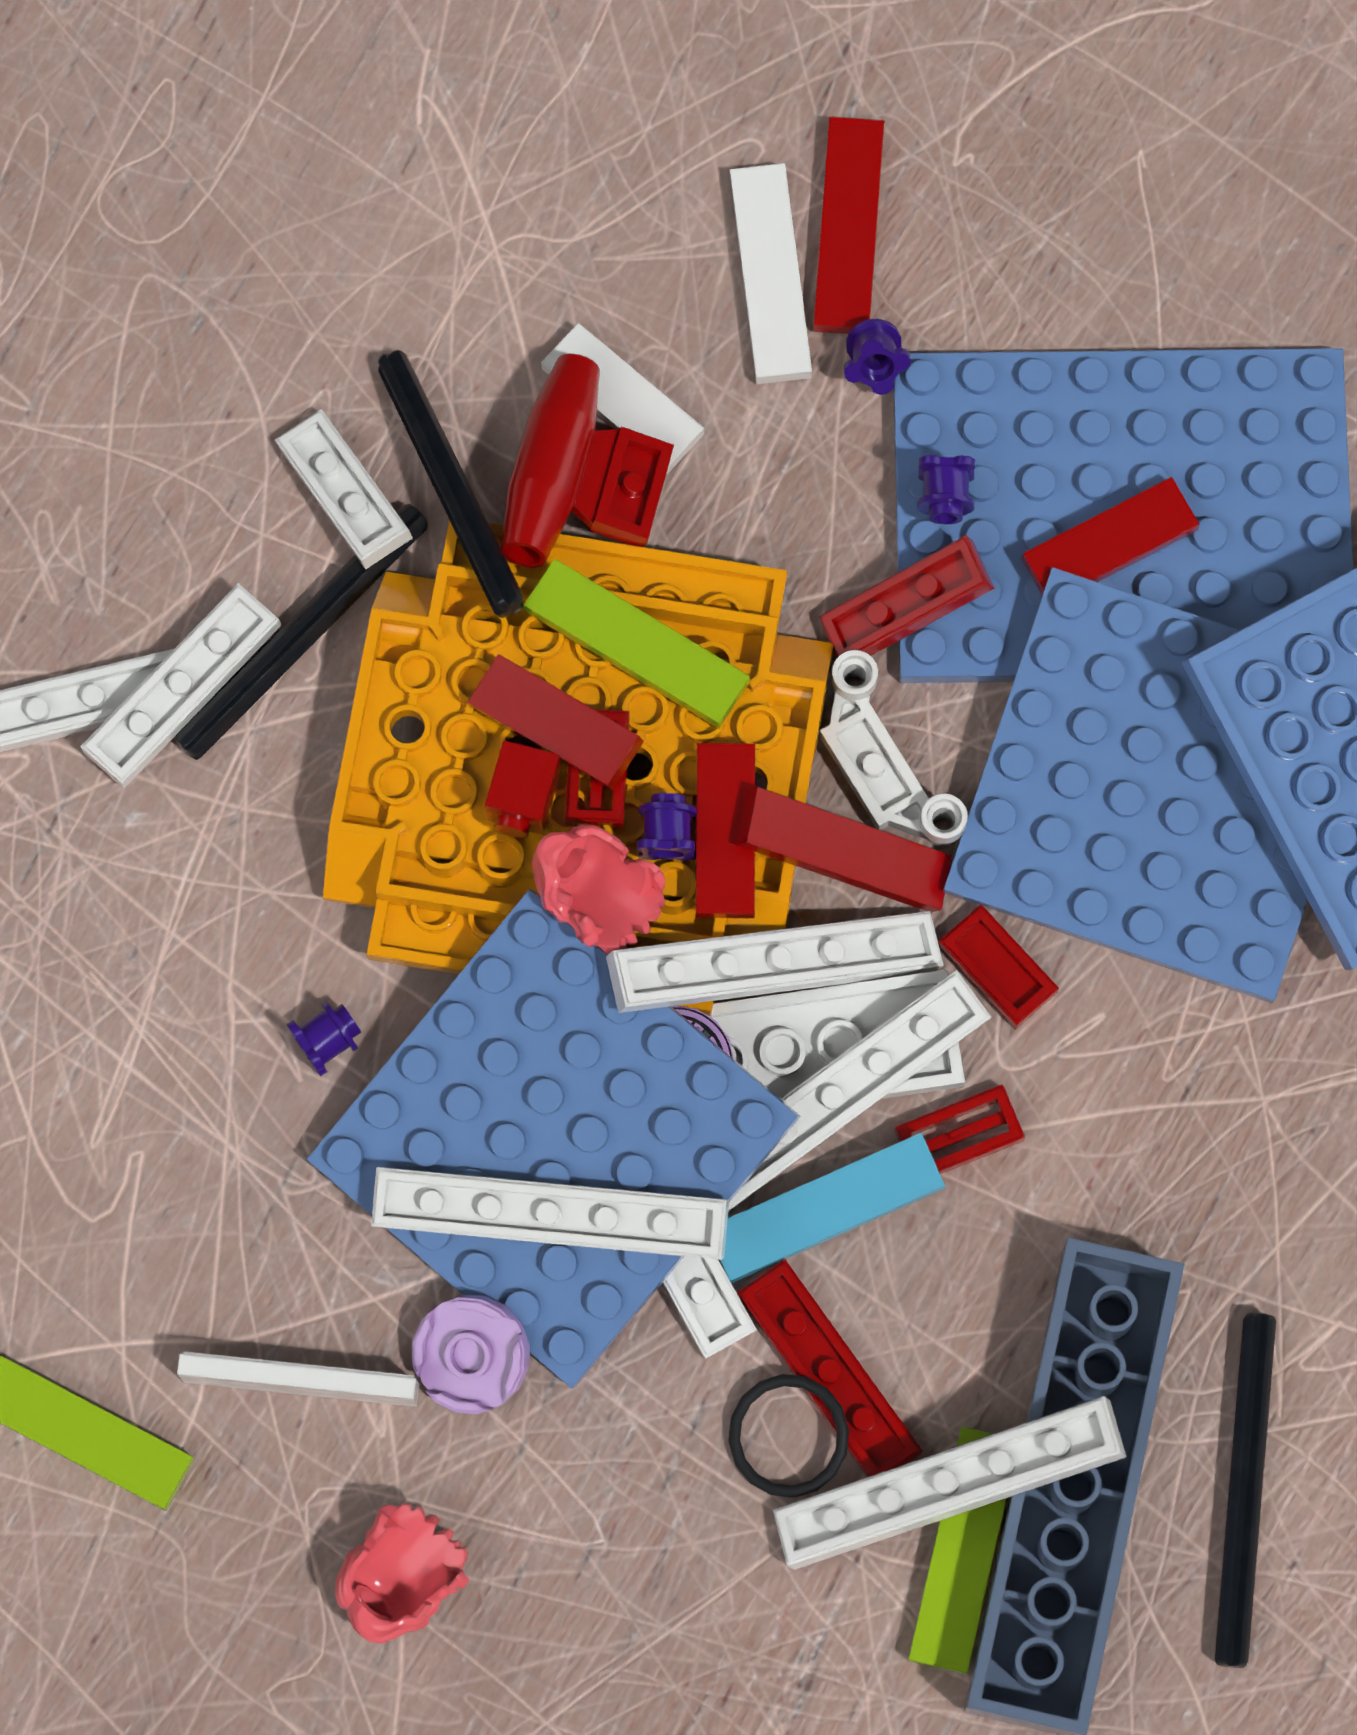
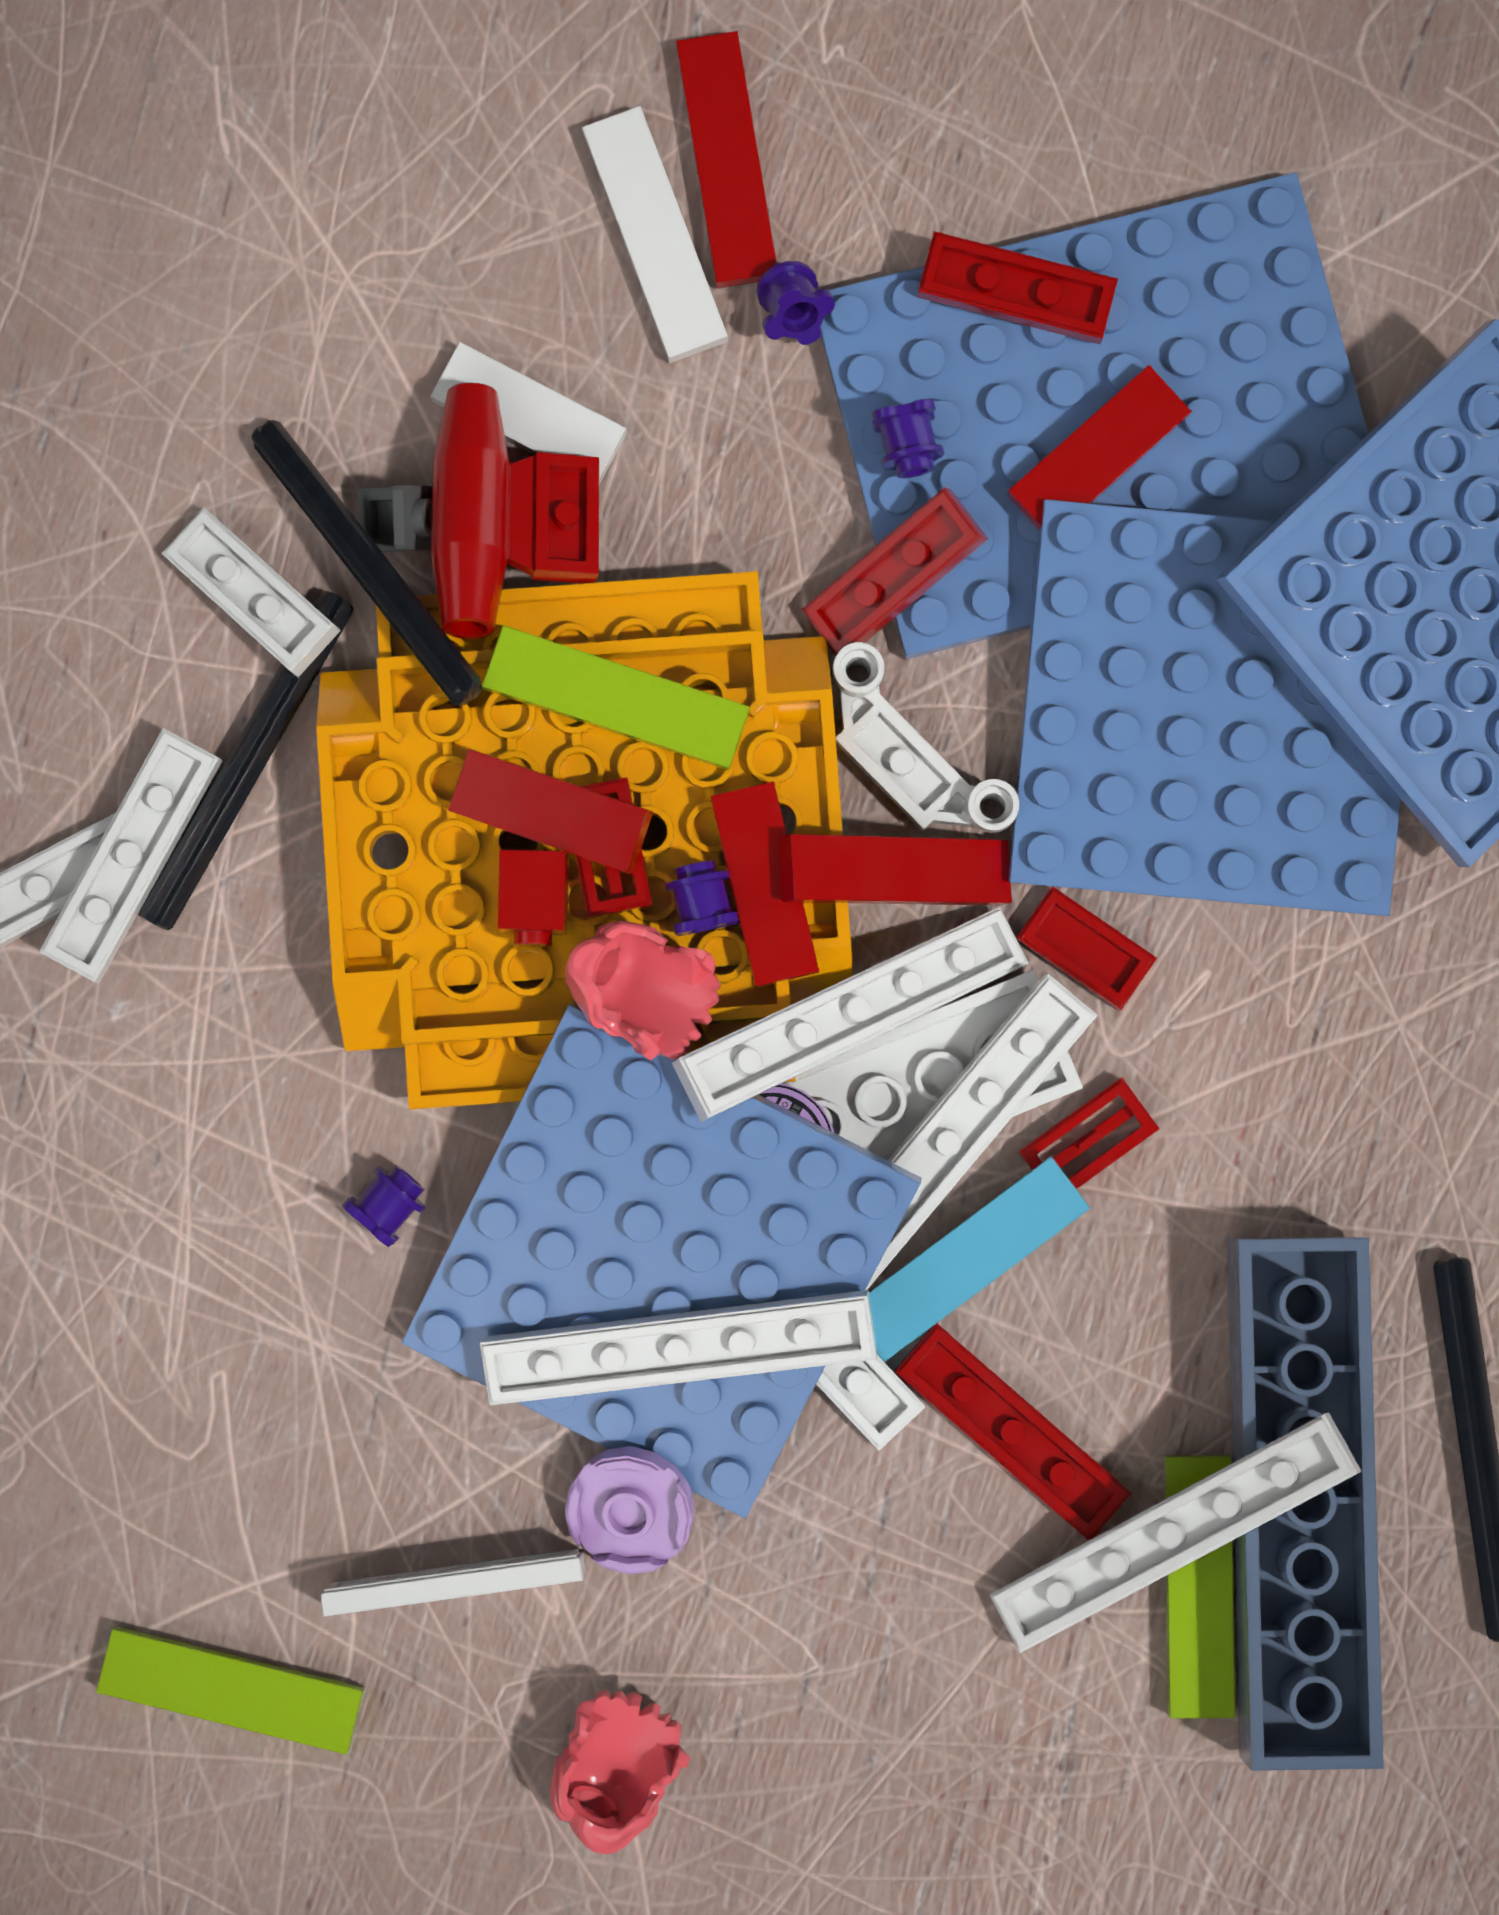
camera: 15 degrees left, 10 degrees up
(487, 454) = (397, 516): none -> dark grey bracket
(841, 1440) = (952, 1556): black piece -> none
(1073, 387) = (1017, 287): none -> red tile

